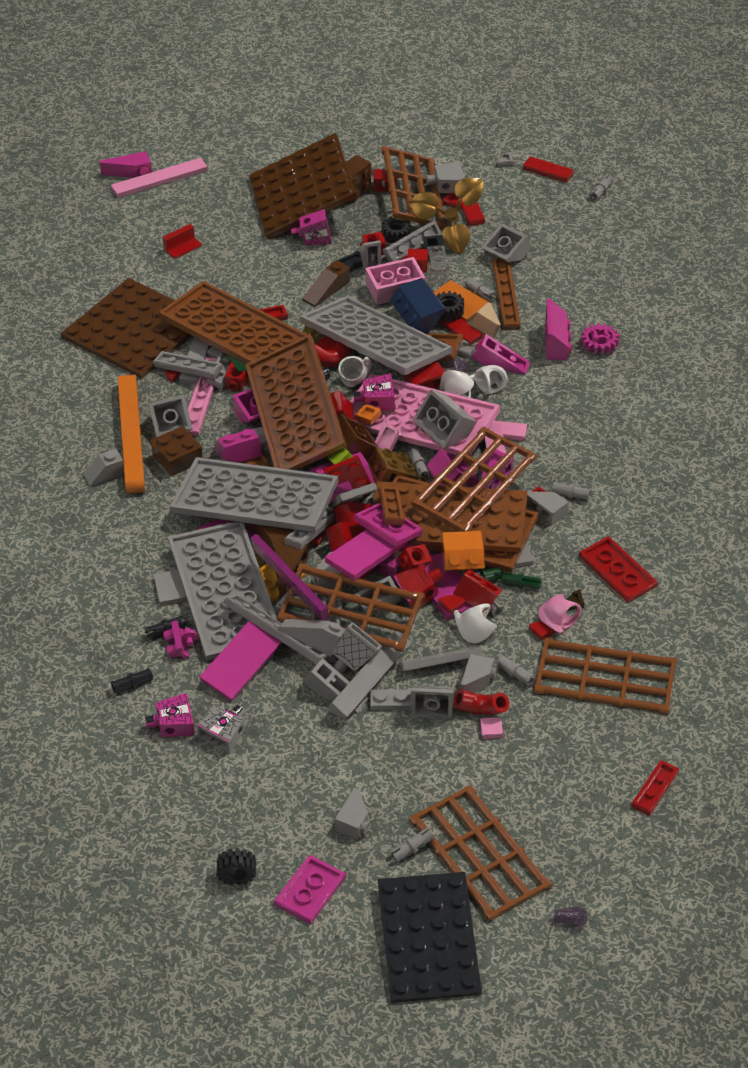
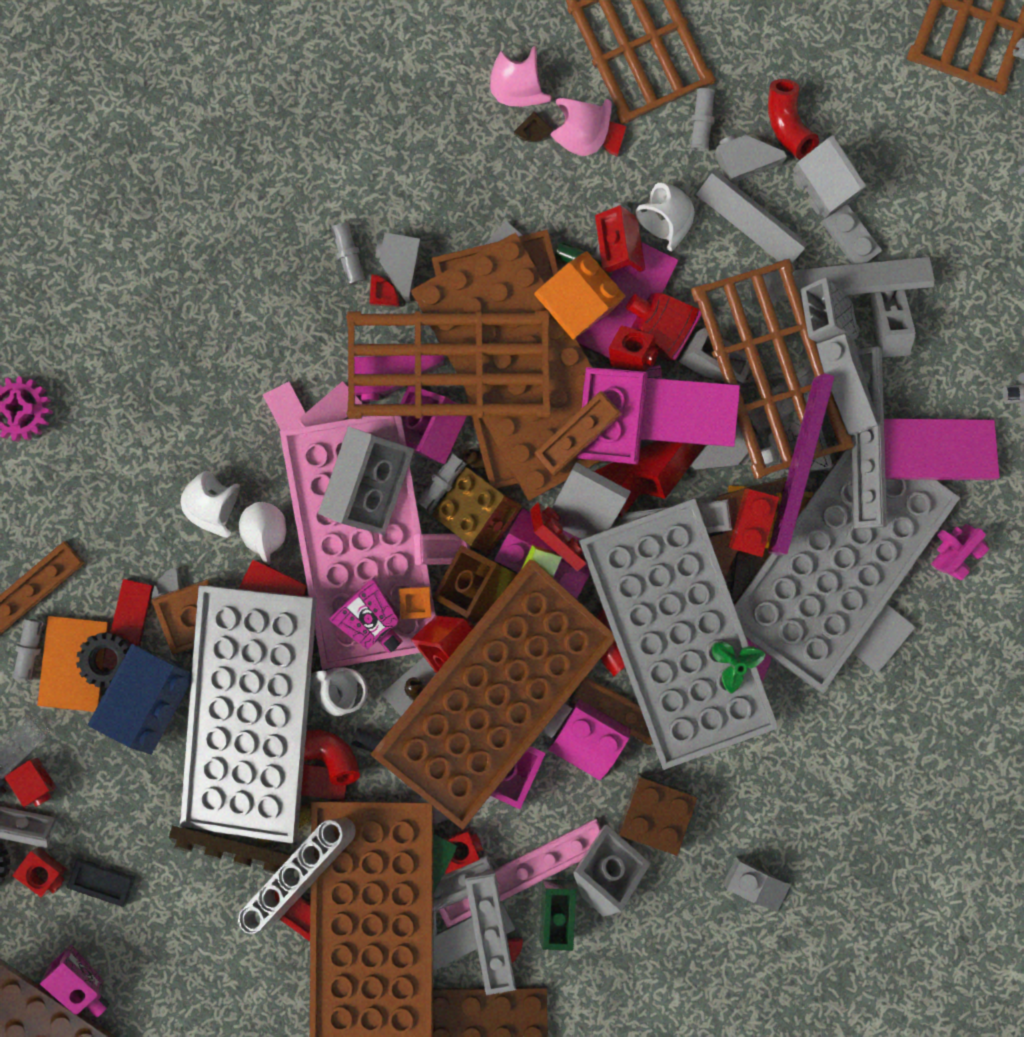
camera: 125 degrees left, 40 degrees up
(131, 434) = (666, 908): orange beam -> none
(165, 625) = (949, 587): black pin -> none
(168, 386) = (557, 915): none -> dark green brick
(214, 498) = (733, 675): none -> green plant
(280, 542) = (753, 522): none -> red brick
(284, 311) = (284, 880): none -> light grey beam
(329, 282) = (176, 874): reddish brown slope -> none
(336, 294) = (217, 847): none -> dark brown plate
(371, 254) = (73, 853): light grey slope -> none
(386, 278) = (104, 776): bright pink brick -> none
(451, 603) = (658, 264): red tile -> none
(459, 364) = (221, 556): clear purple cone -> none
(486, 321) = (94, 589): tan slope -> none
(491, 728) = (810, 92): bright pink tile -> none
(492, 352) = (156, 519): dark pink slope -> none
(521, 580) = (551, 210): dark green axle -> none
(557, 332) = (53, 472): dark pink slope -> none
(609, 598) = (517, 82): none -> bright pink piece
(618, 569) = (440, 111): red tile -> none

